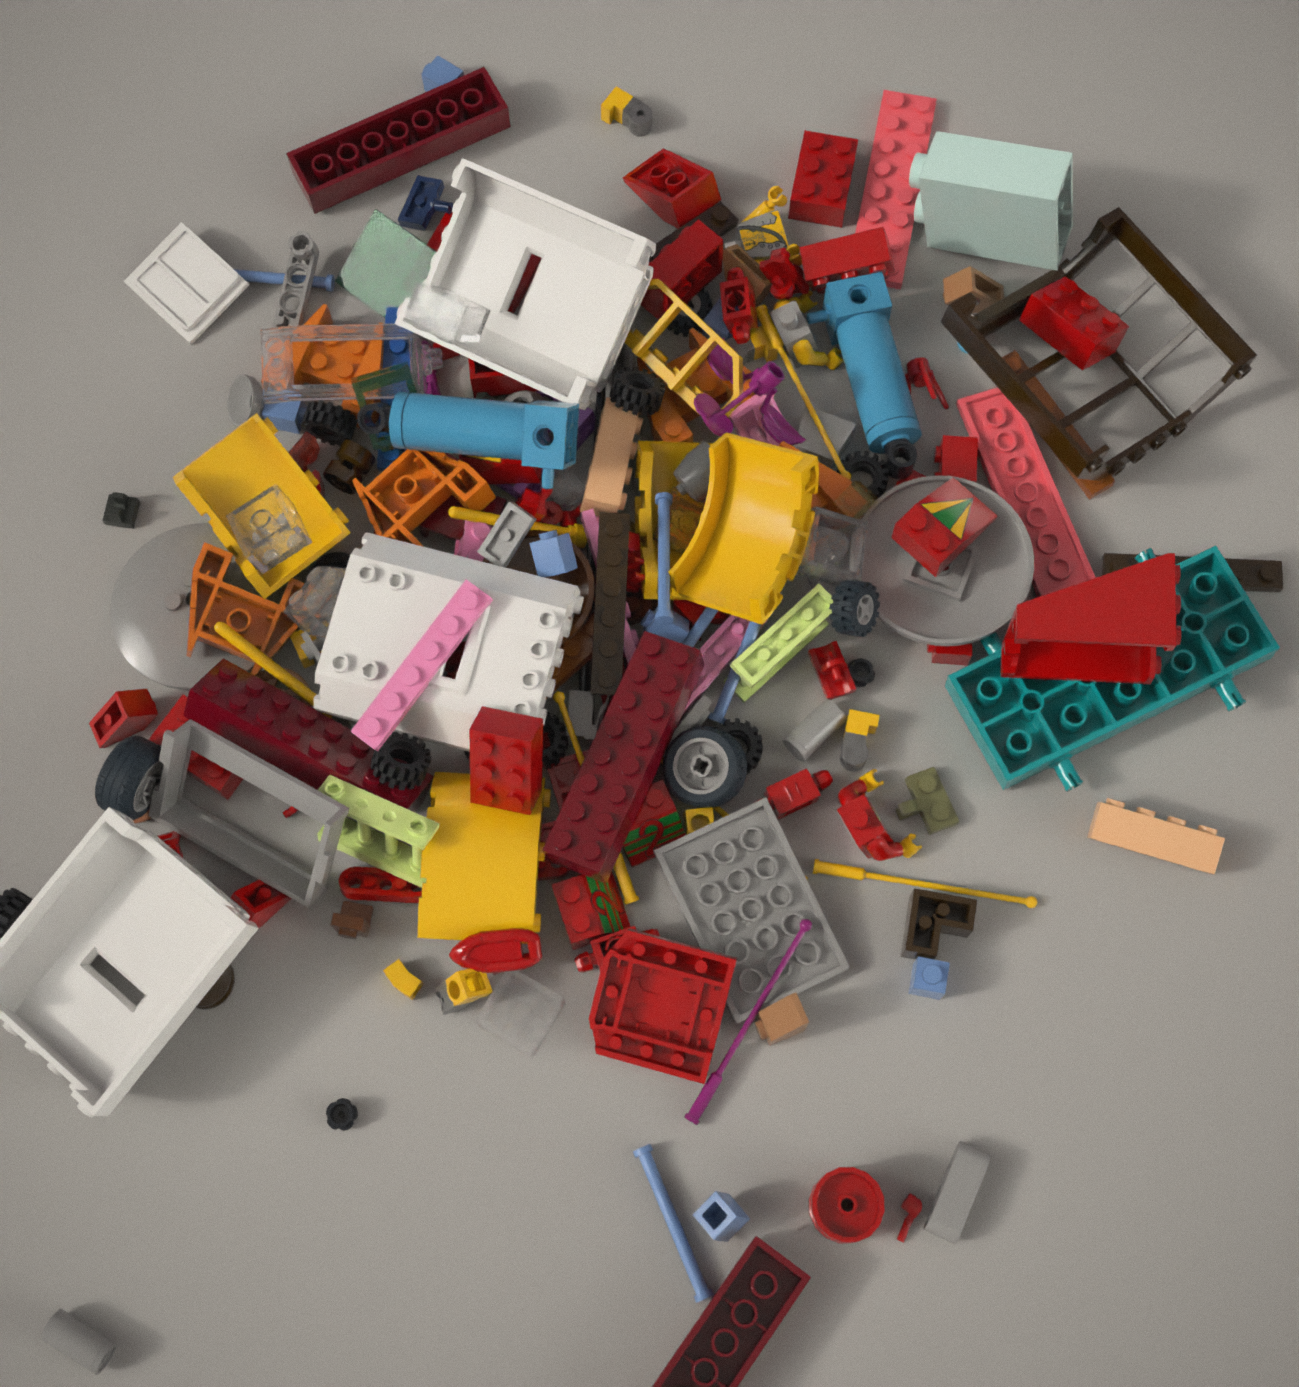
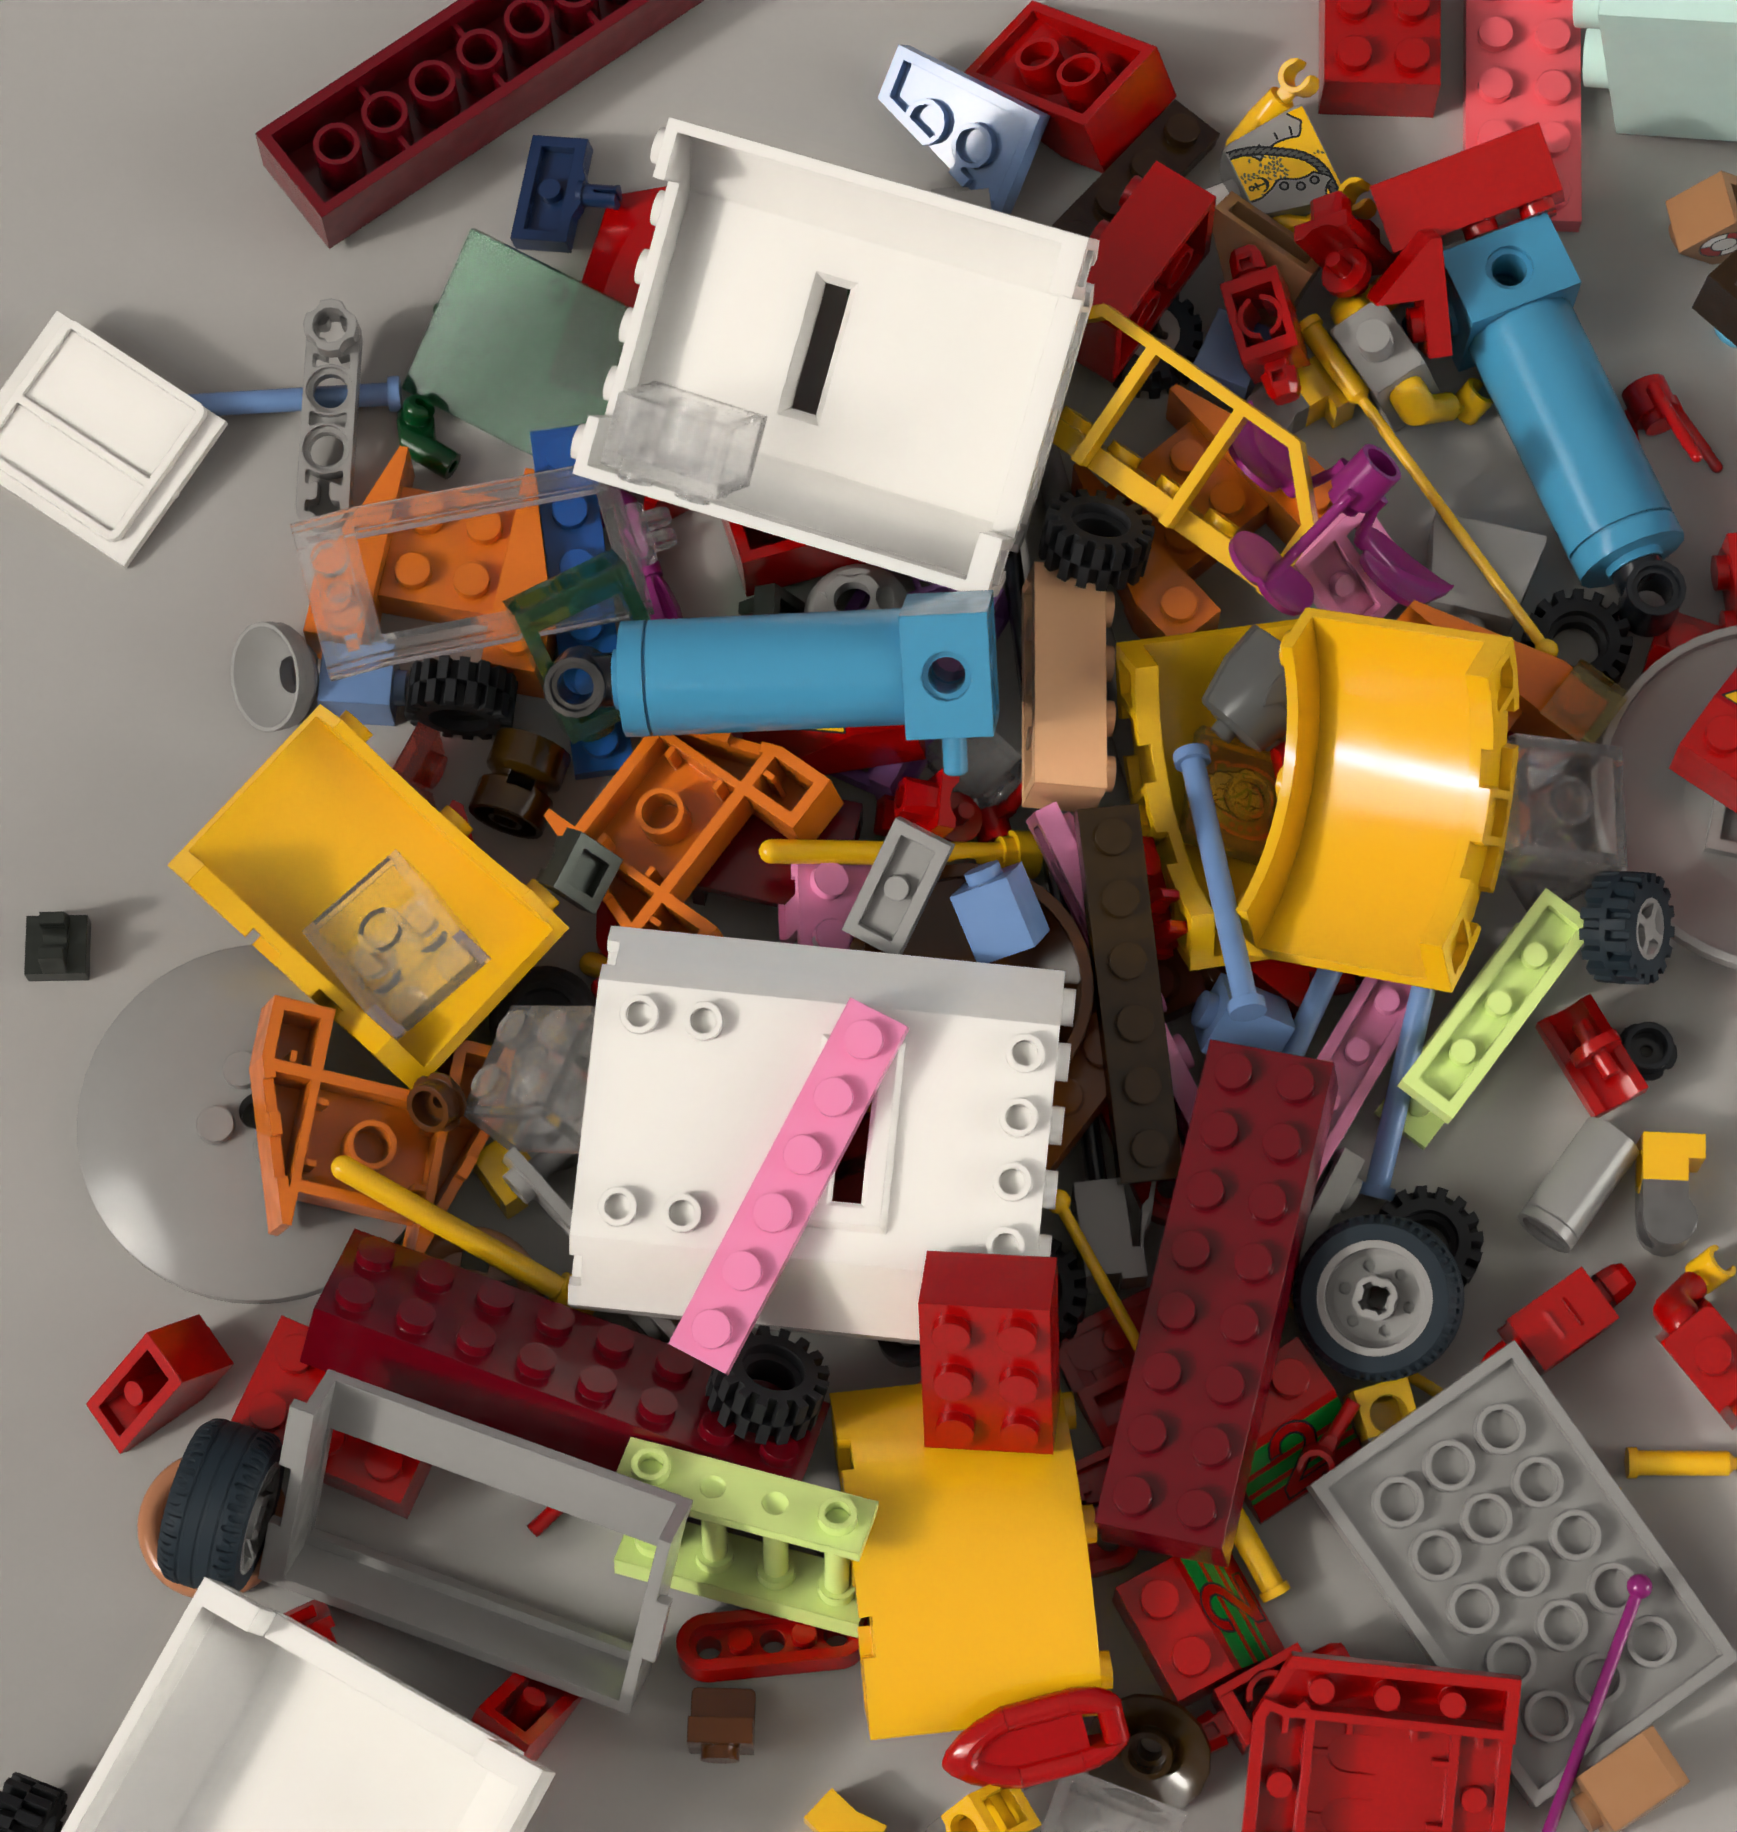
camera: 10 degrees left, 0 degrees up
(272, 604) = (436, 1103): none -> reddish brown plate
(337, 304) = (418, 433): none -> dark green arm
(361, 506) = (580, 870): none -> pearl dark grey tile
(559, 980) = (1176, 1771): none -> dark brown dish
(619, 196) = (969, 124): none -> medium blue wing
(669, 831) = (1331, 1439): none -> red hand
(814, 292) = (1420, 278): none -> red slope

